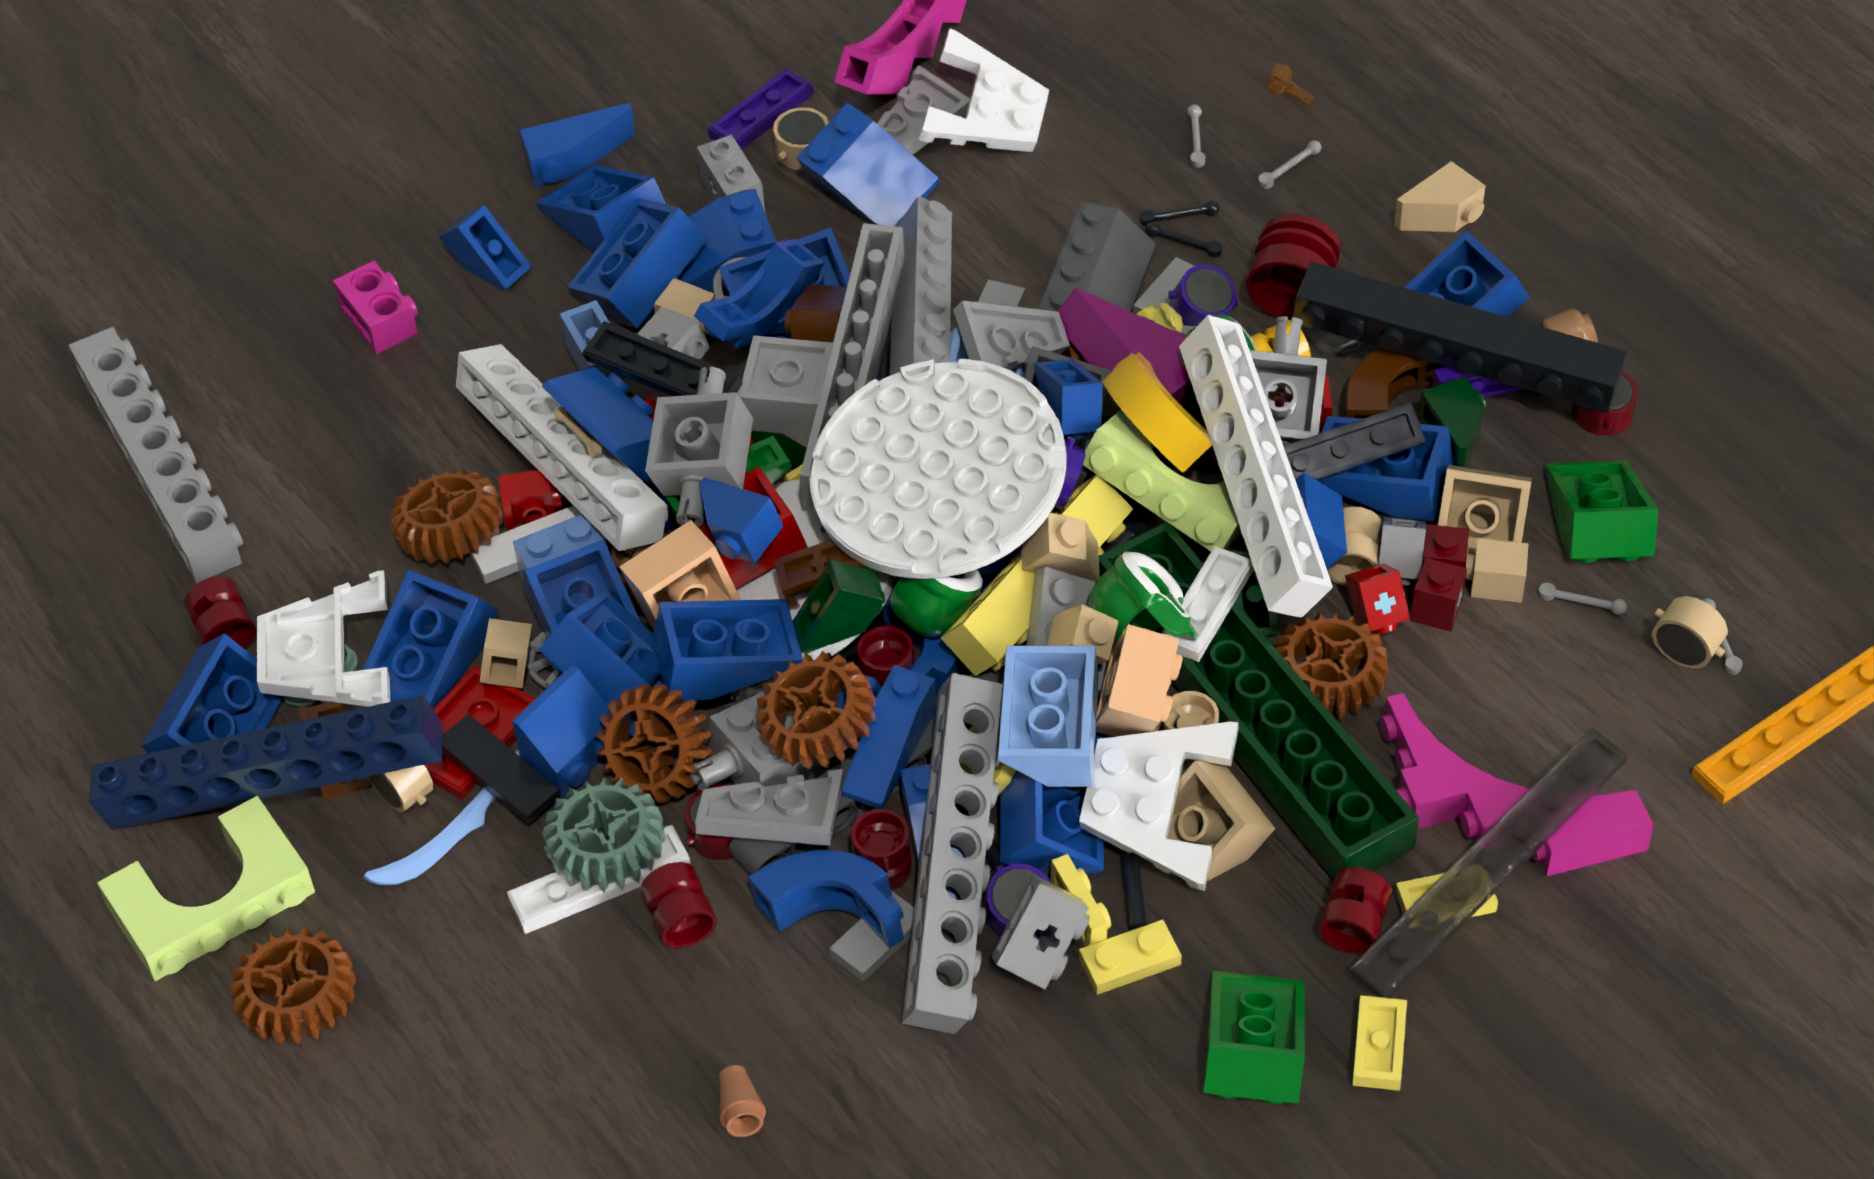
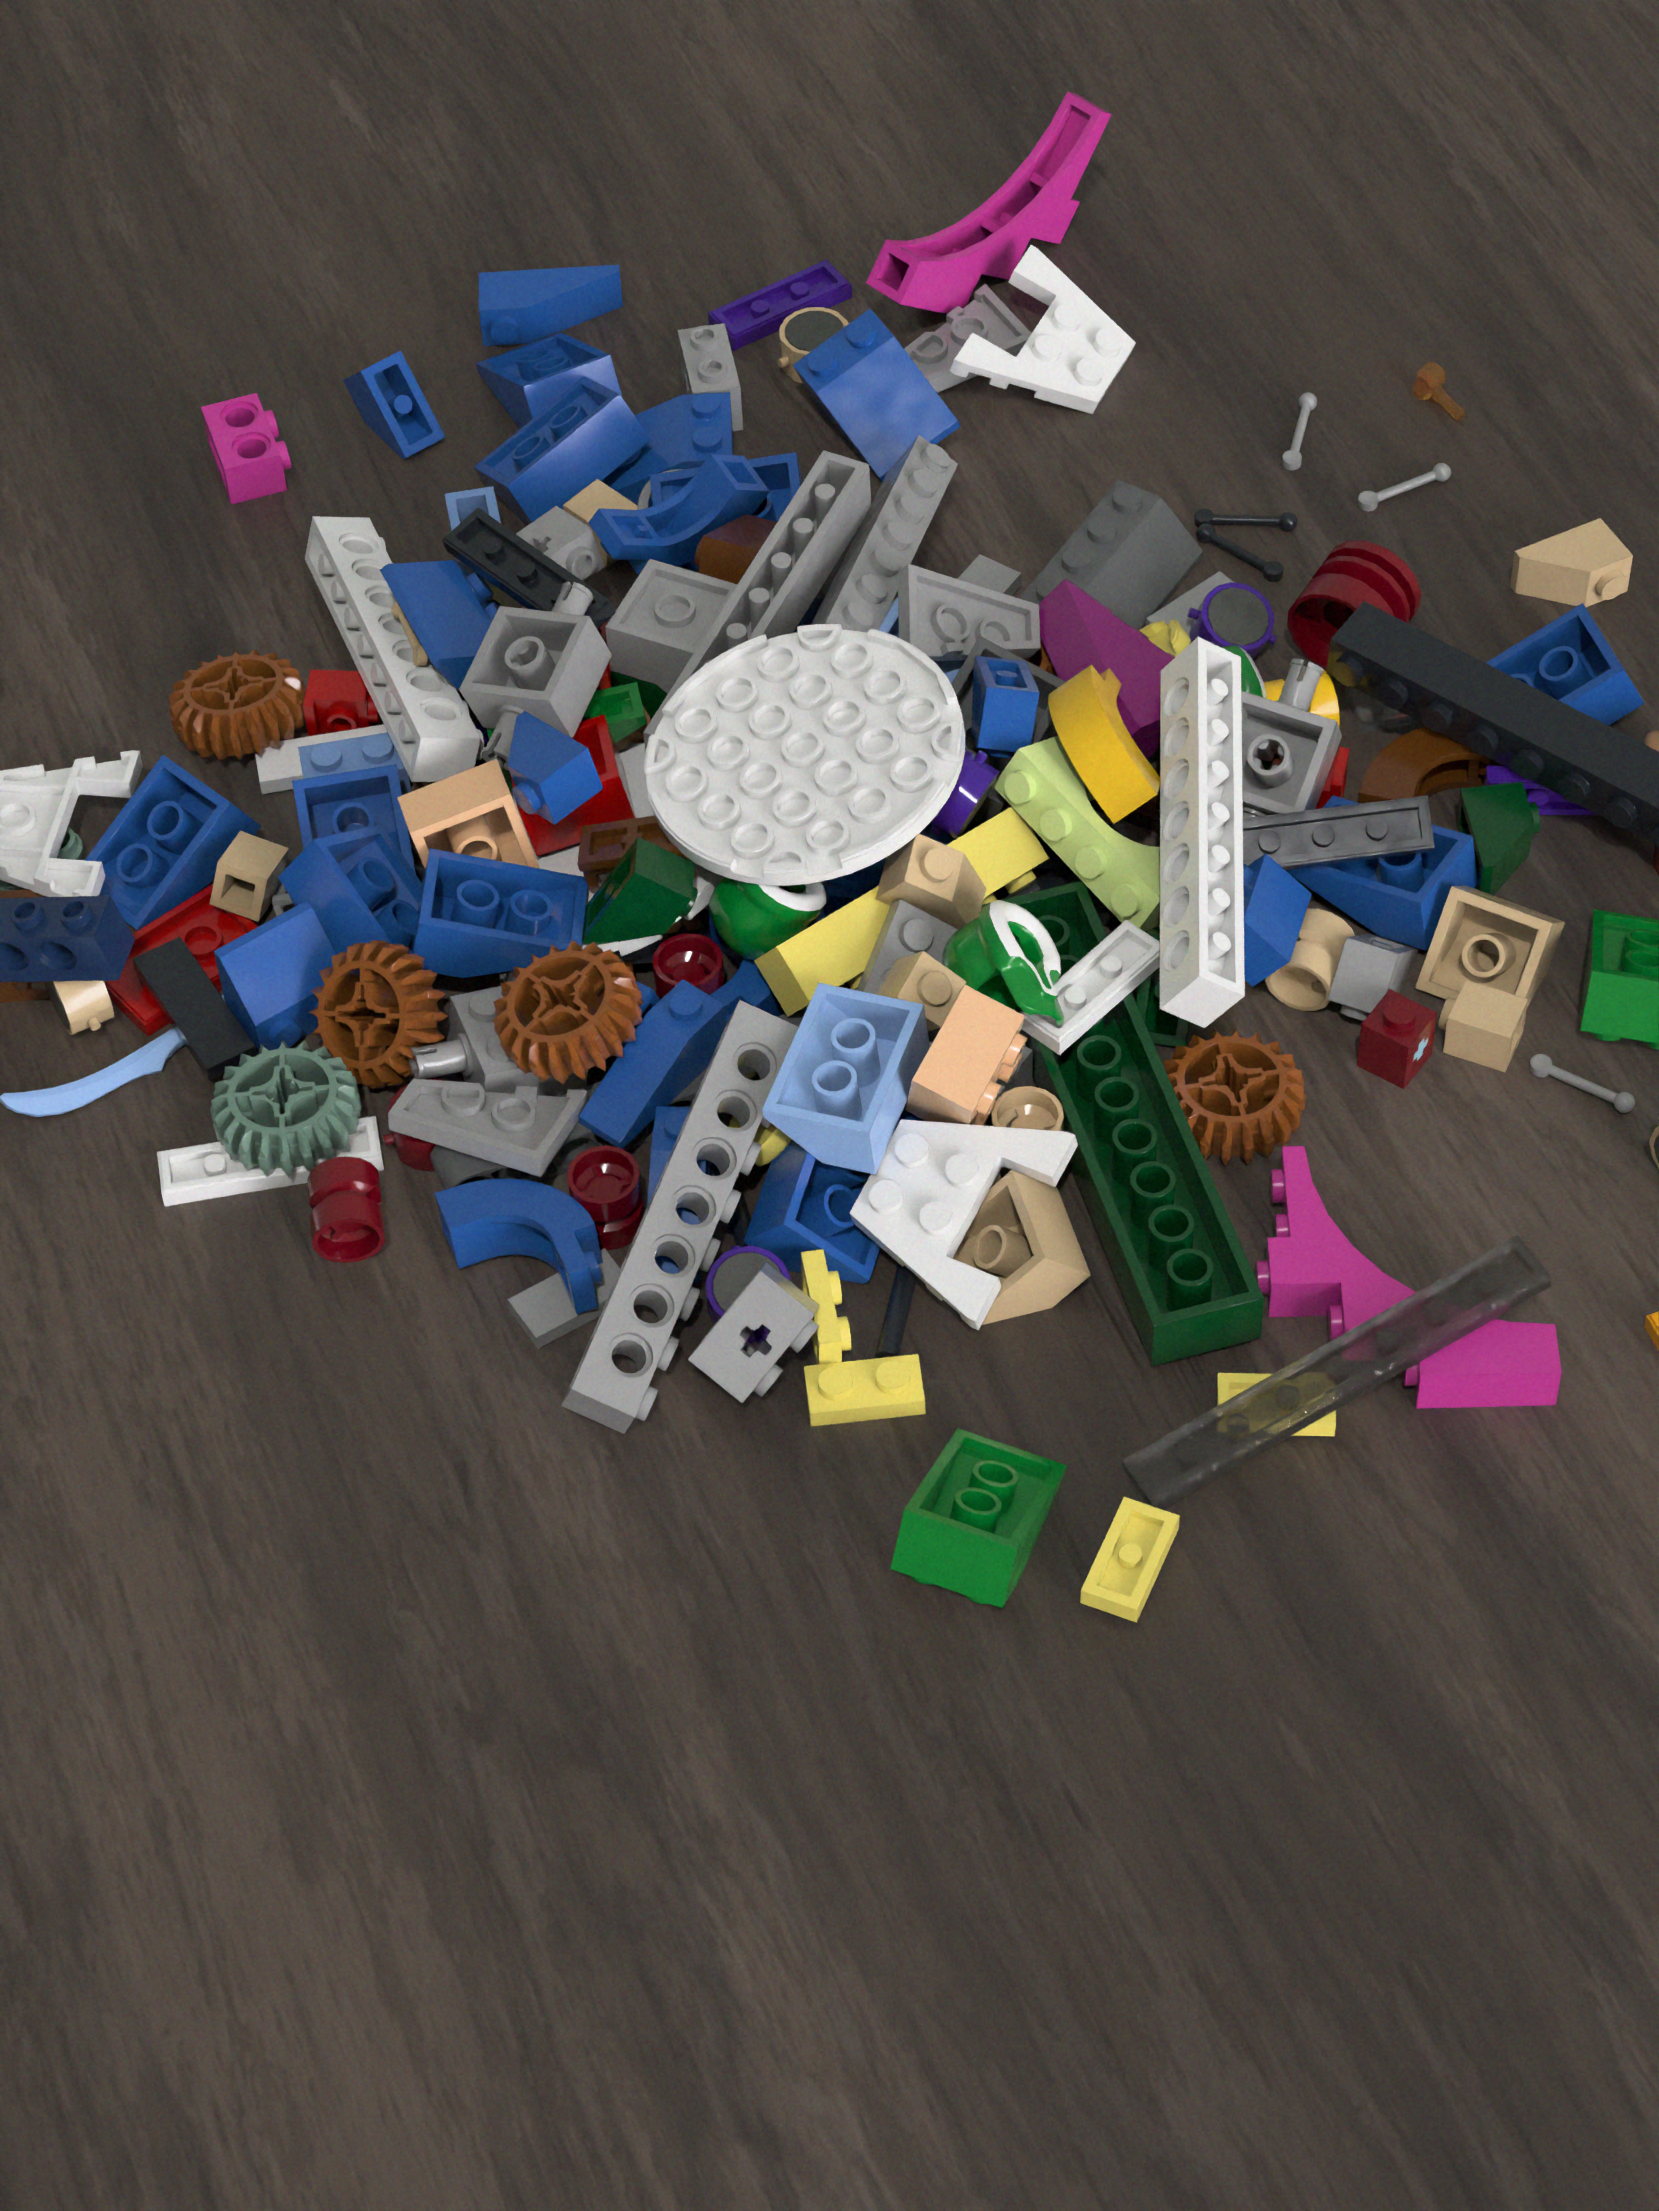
camera: 15 degrees right, 0 degrees up
(740, 1104) = (338, 1455): nougat cone -> none
(1355, 910) = (1154, 1393): dark red wheel -> none
(1377, 598) = (1316, 1027): red brick -> none
(1446, 544) = (1424, 981): dark red brick -> none

